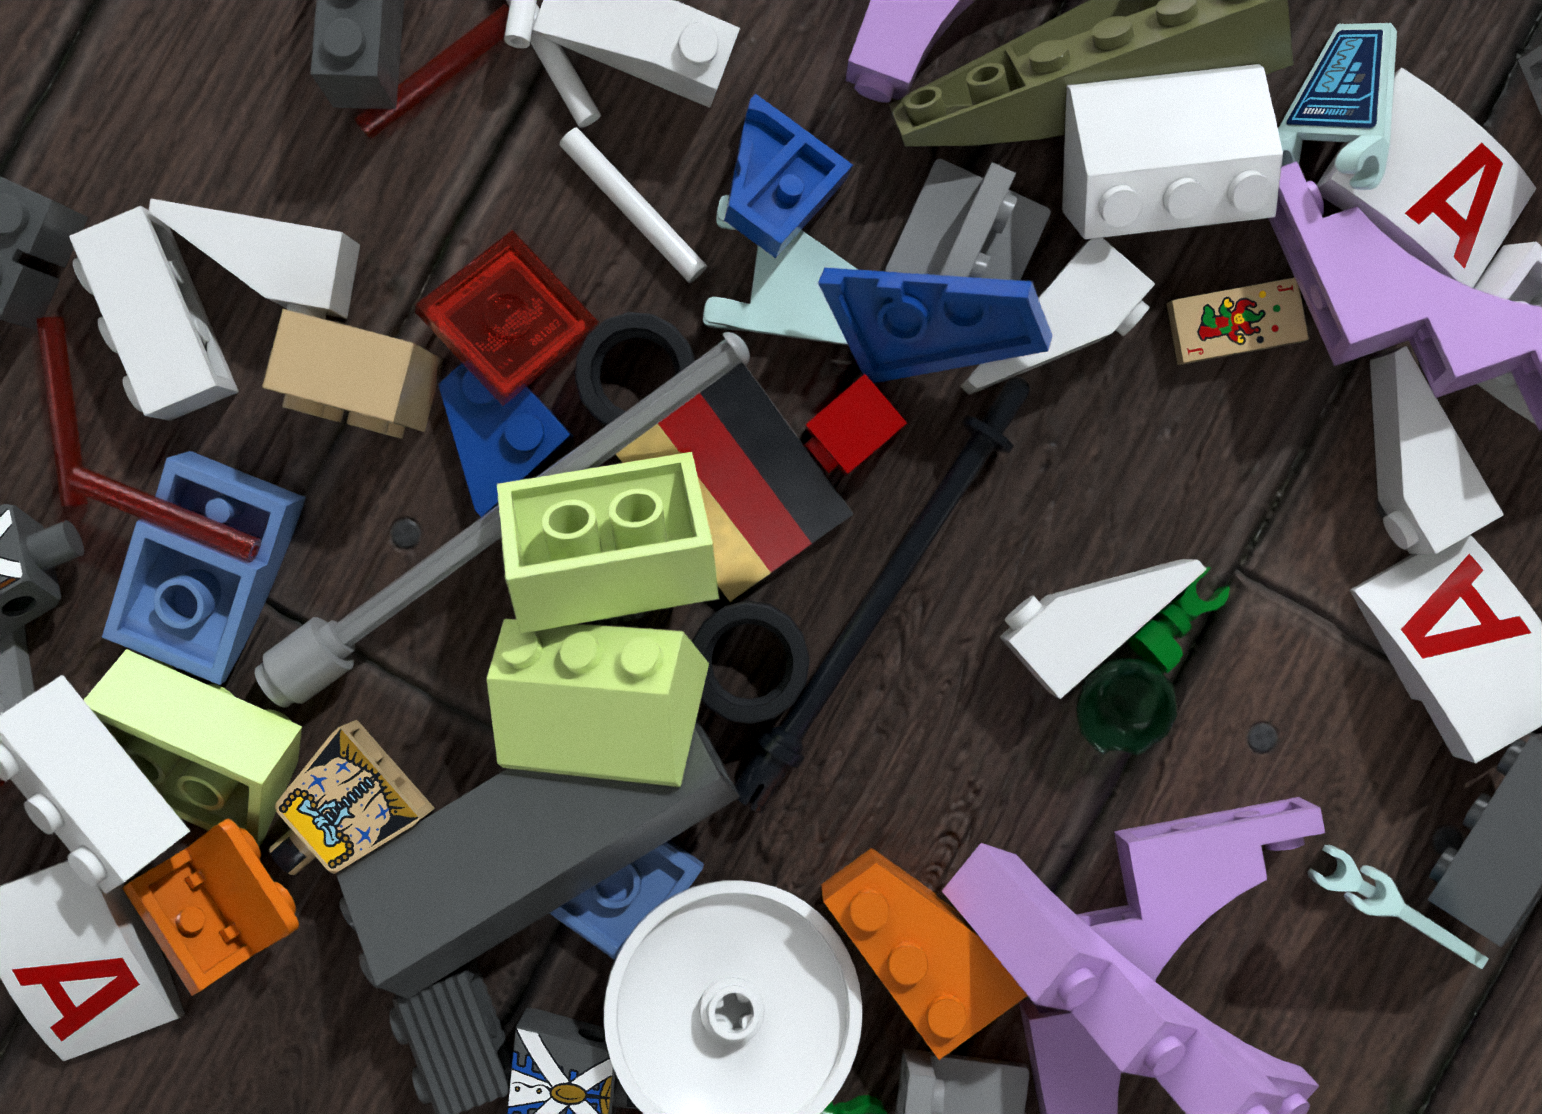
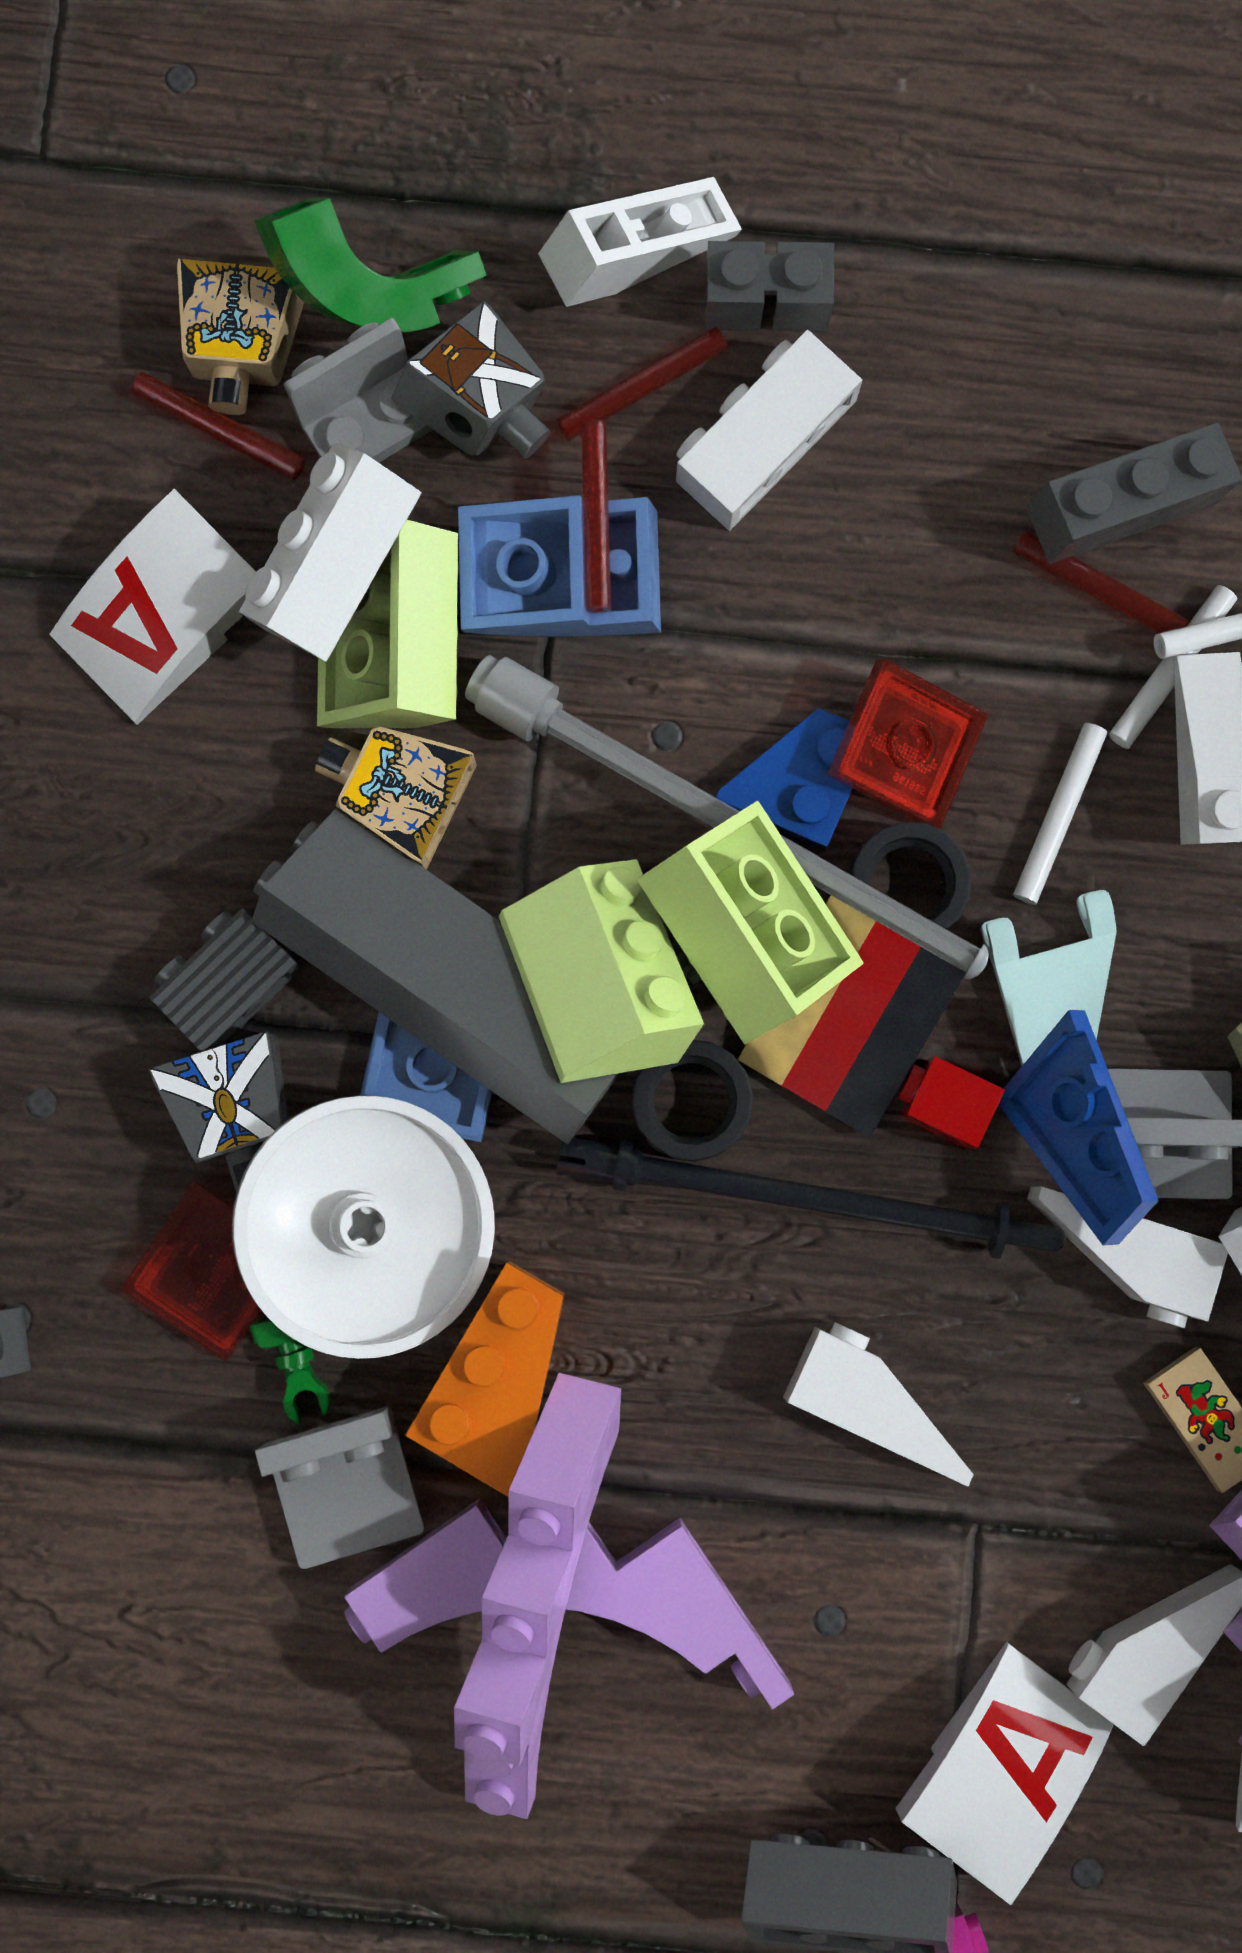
camera: 65 degrees right, 5 degrees down
(213, 905) = (260, 711): orange bracket -> none
(283, 261) = (868, 526): white slope -> none
(352, 370) = (798, 630): tan brick -> none
(779, 178) = (1146, 935): blue wing -> none
(1126, 706) = (805, 1470): clear green hair -> none
(1156, 640) = (879, 1472): green piece -> none
(1387, 901) = (735, 1793): light aqua flag -> none

